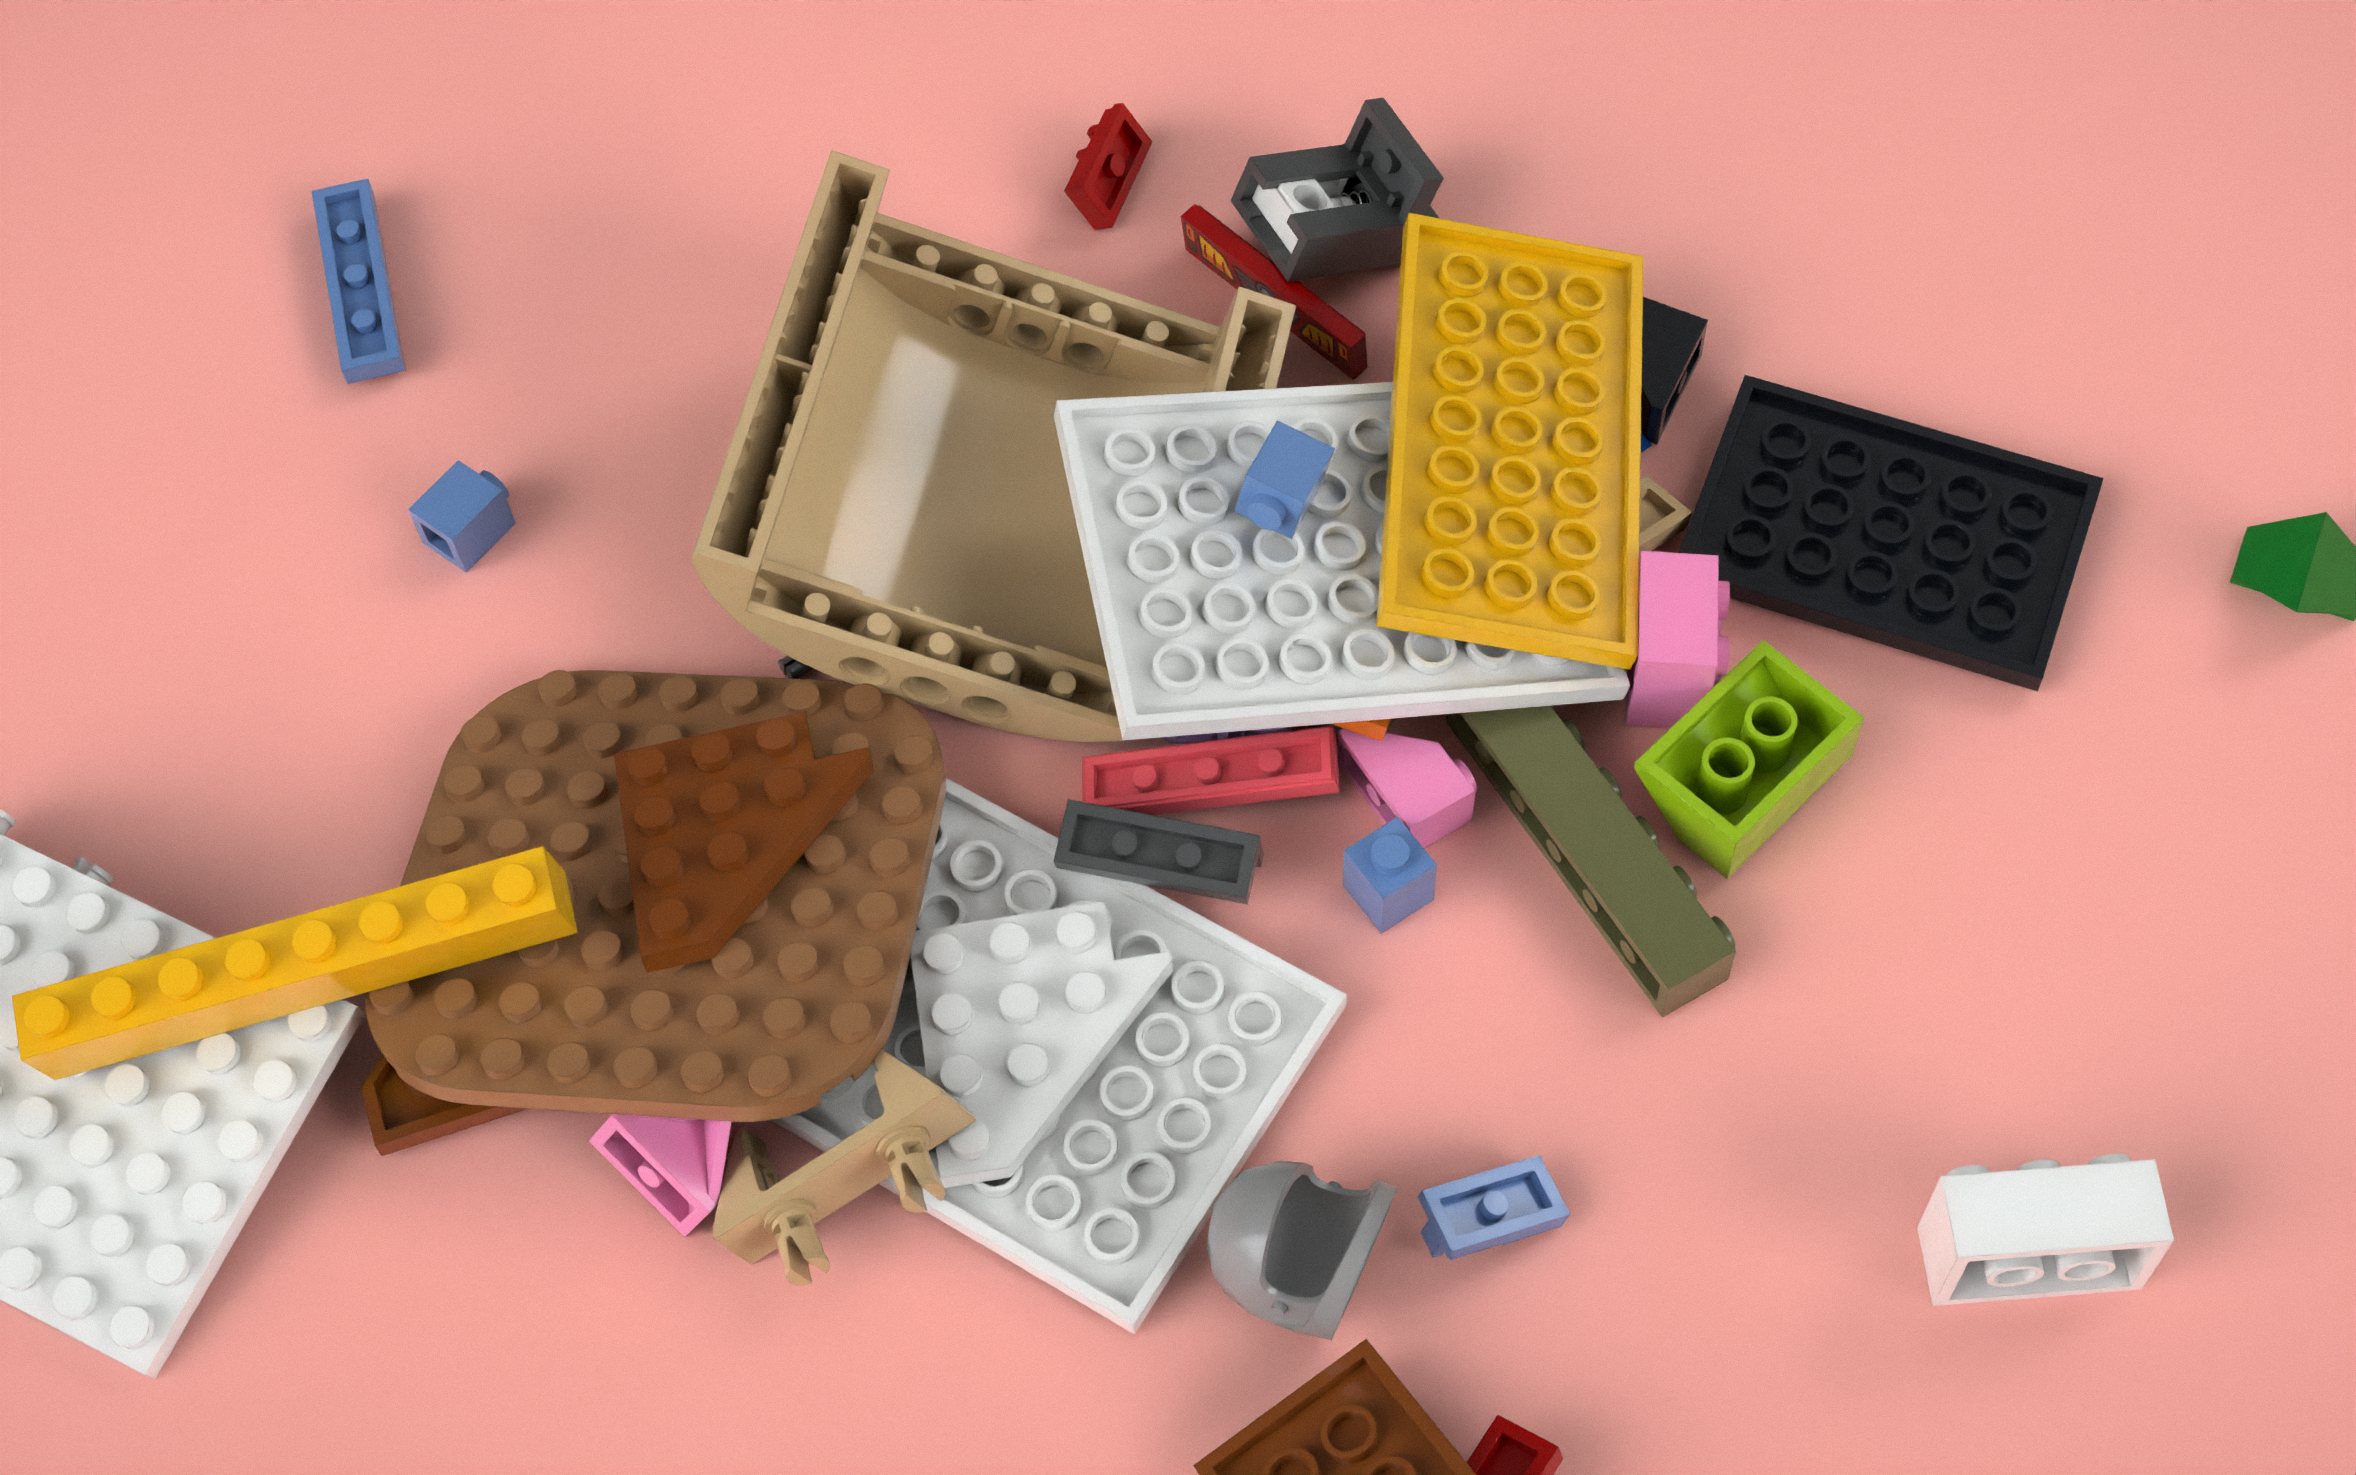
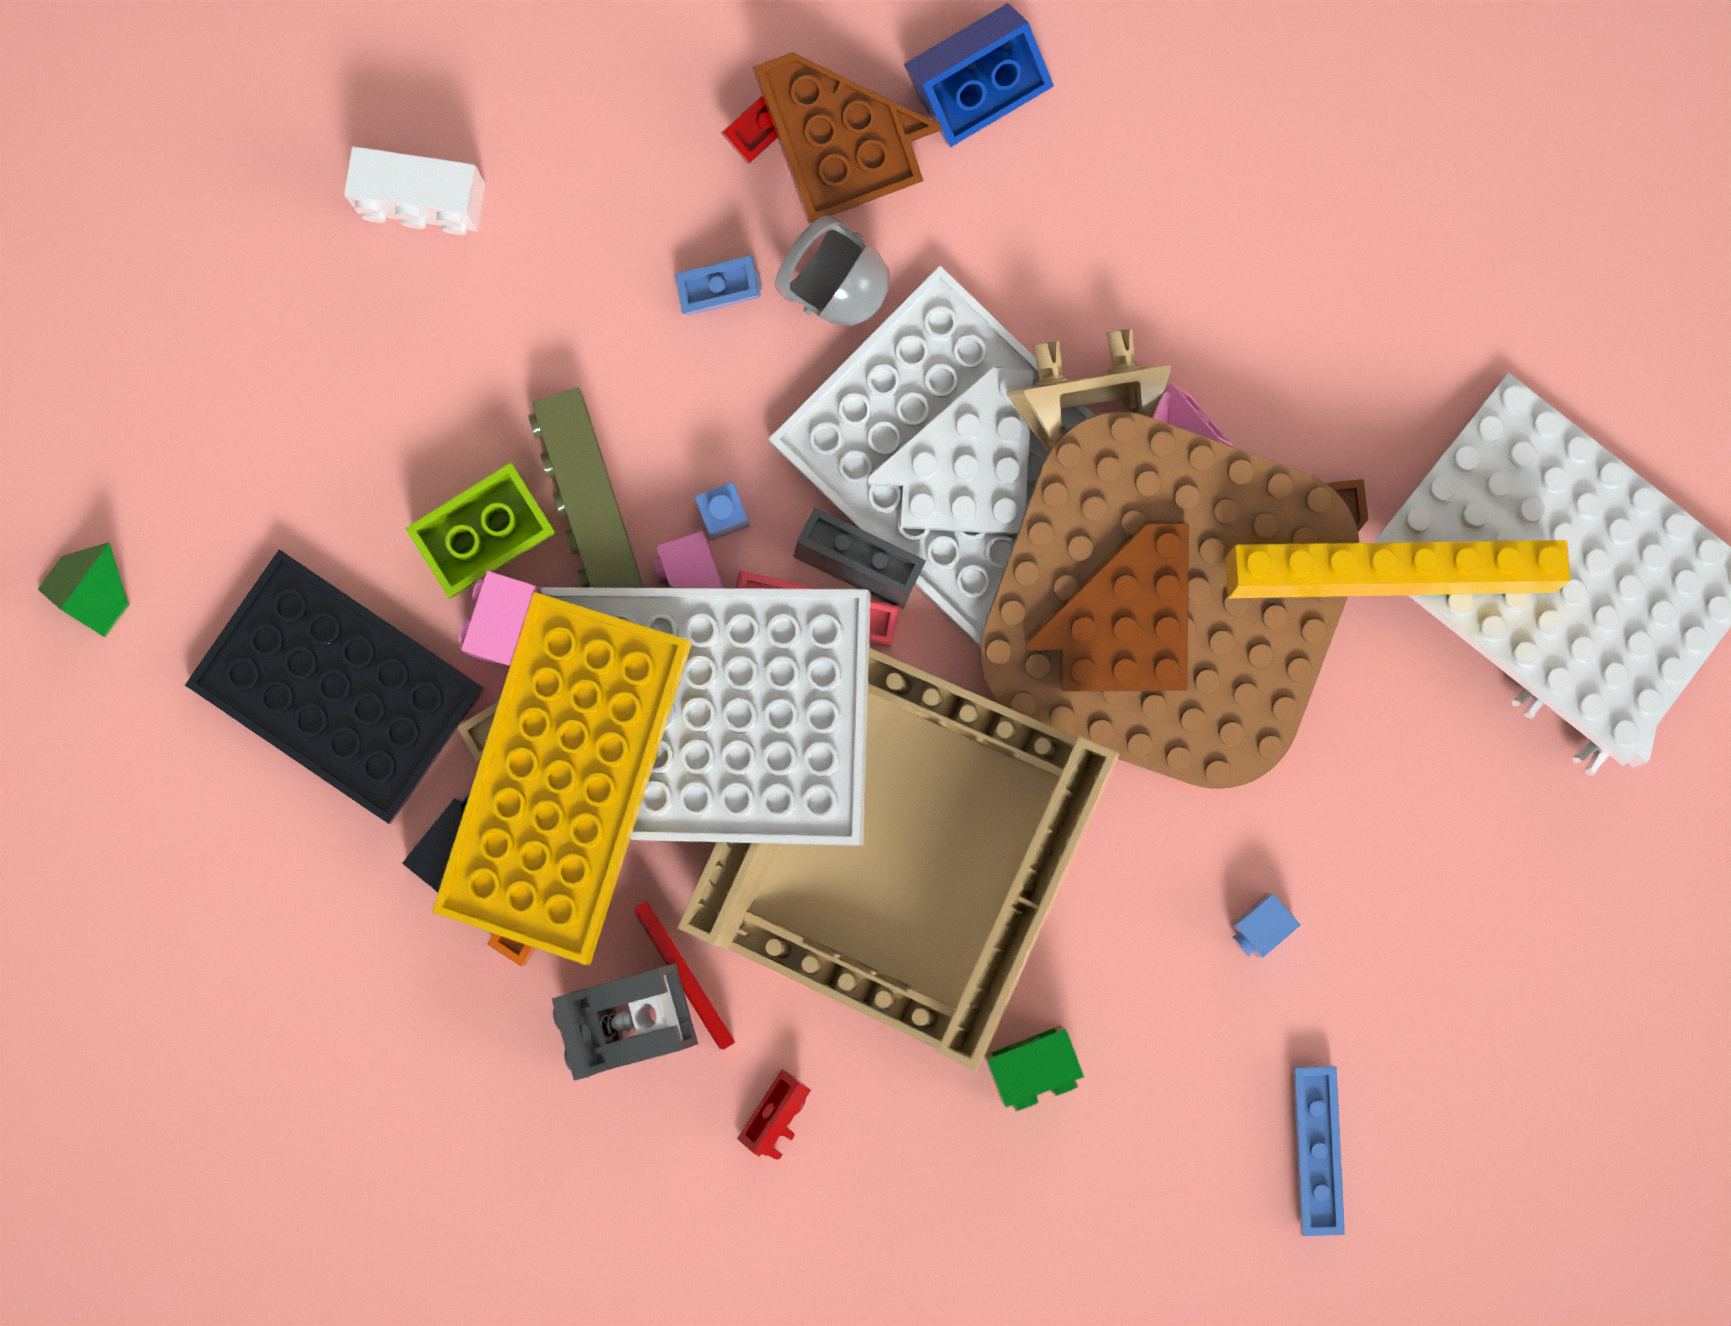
camera: 175 degrees left, 25 degrees up
(746, 264) = (1034, 1067): none -> green brick
(1283, 480) = (726, 749): medium blue brick -> none

